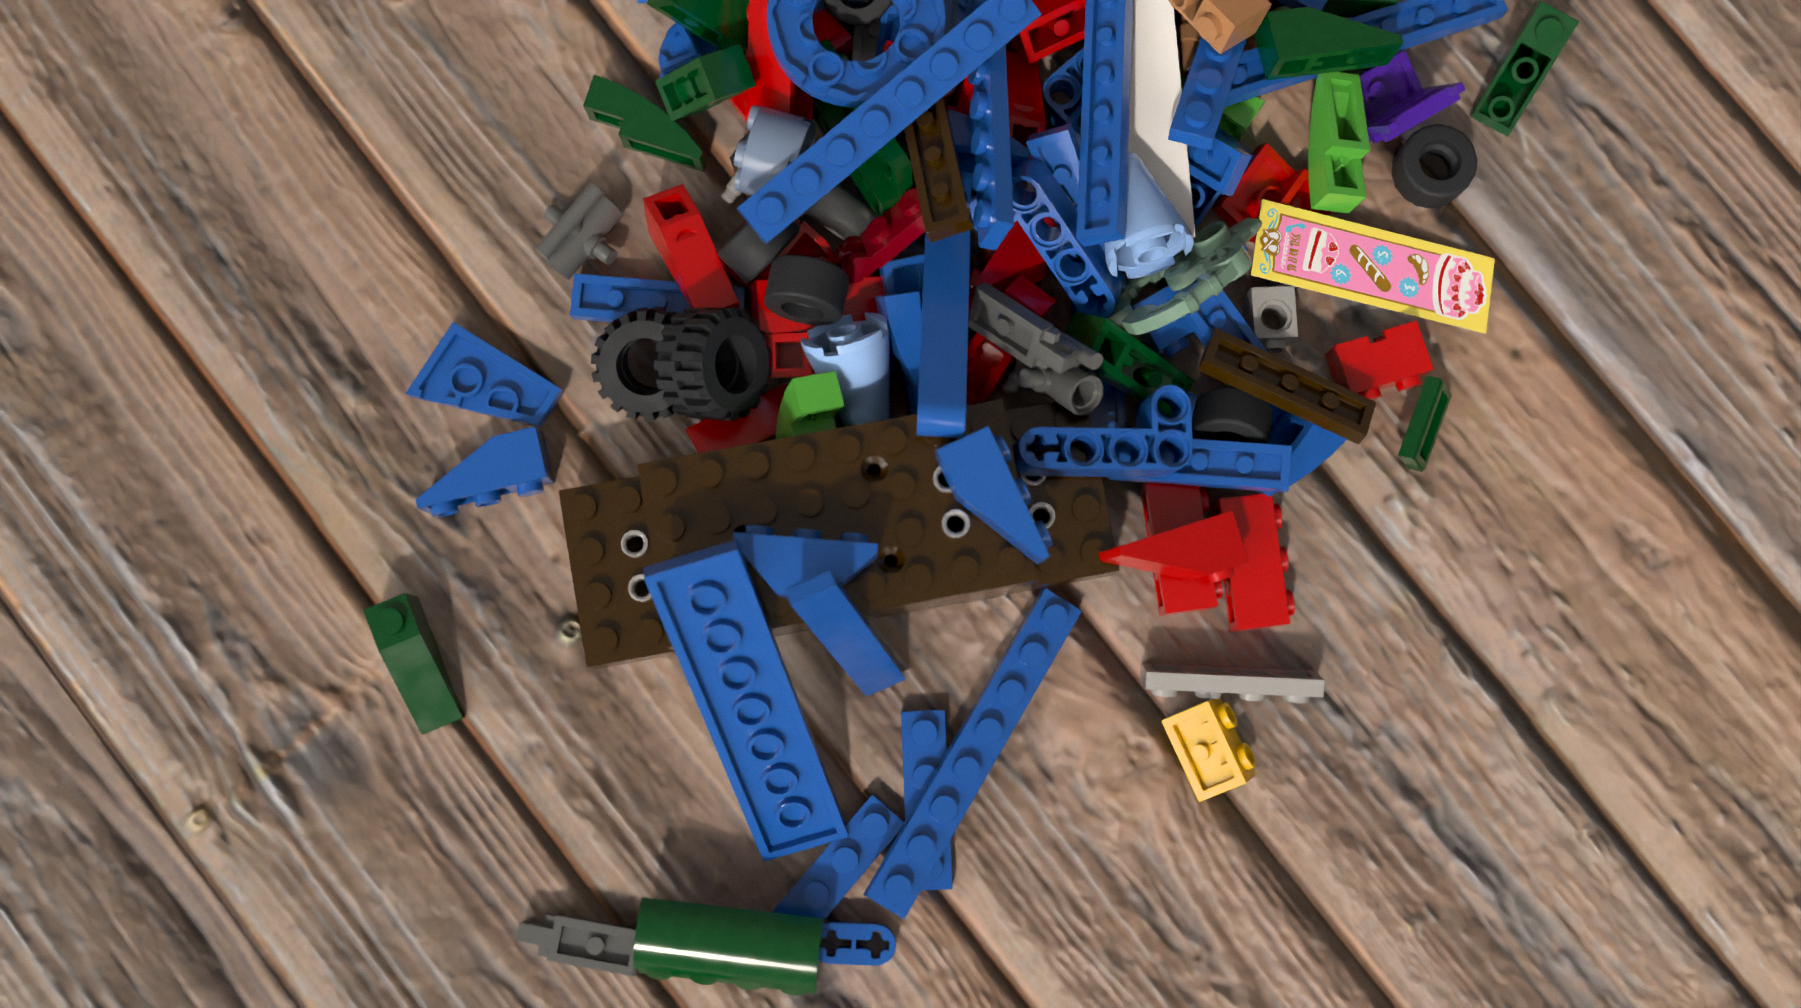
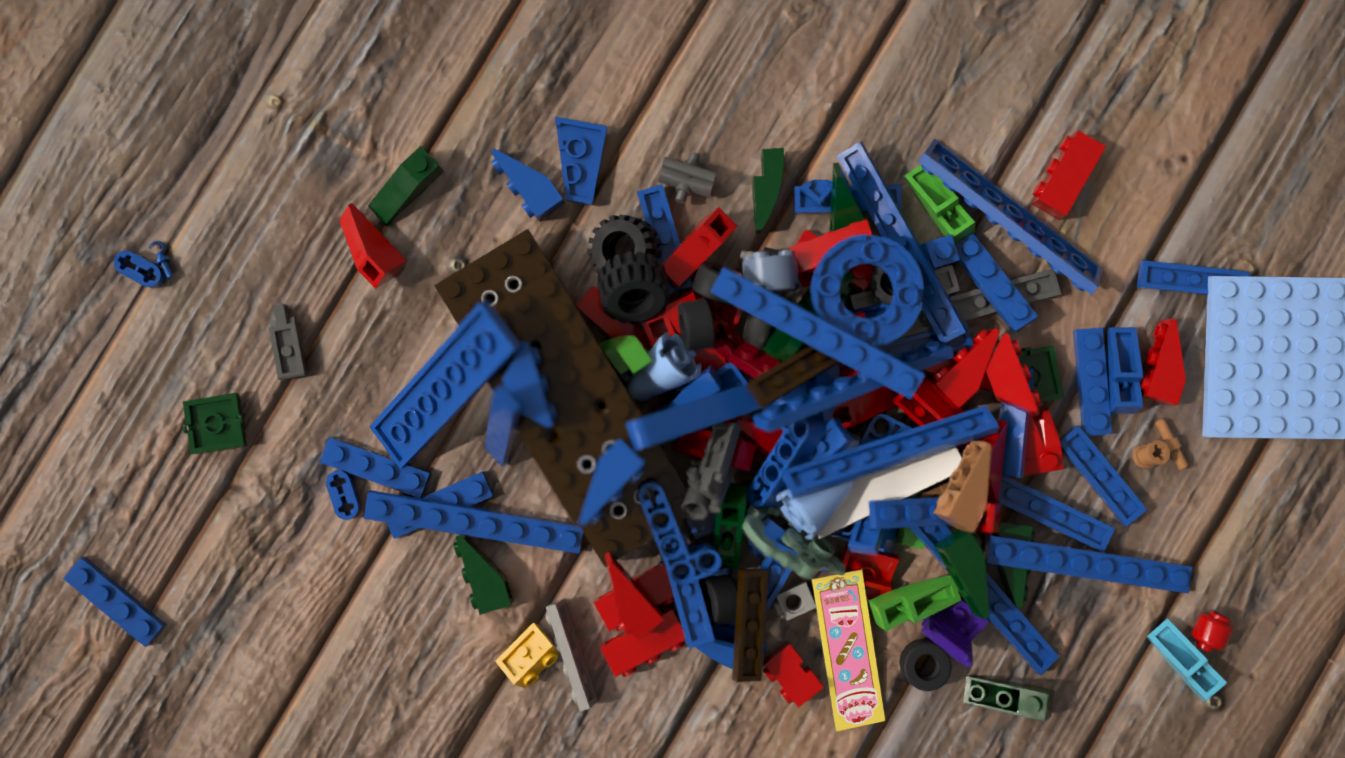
camera: 70 degrees right, 5 degrees up
(487, 753) = (369, 248): none -> red slope
(705, 82) = (800, 216): dark green brick -> none
(727, 946) = (312, 425): dark green brick -> none
(1073, 766) = (486, 580): none -> dark green slope
(1425, 424) = (765, 714): dark green tile -> none

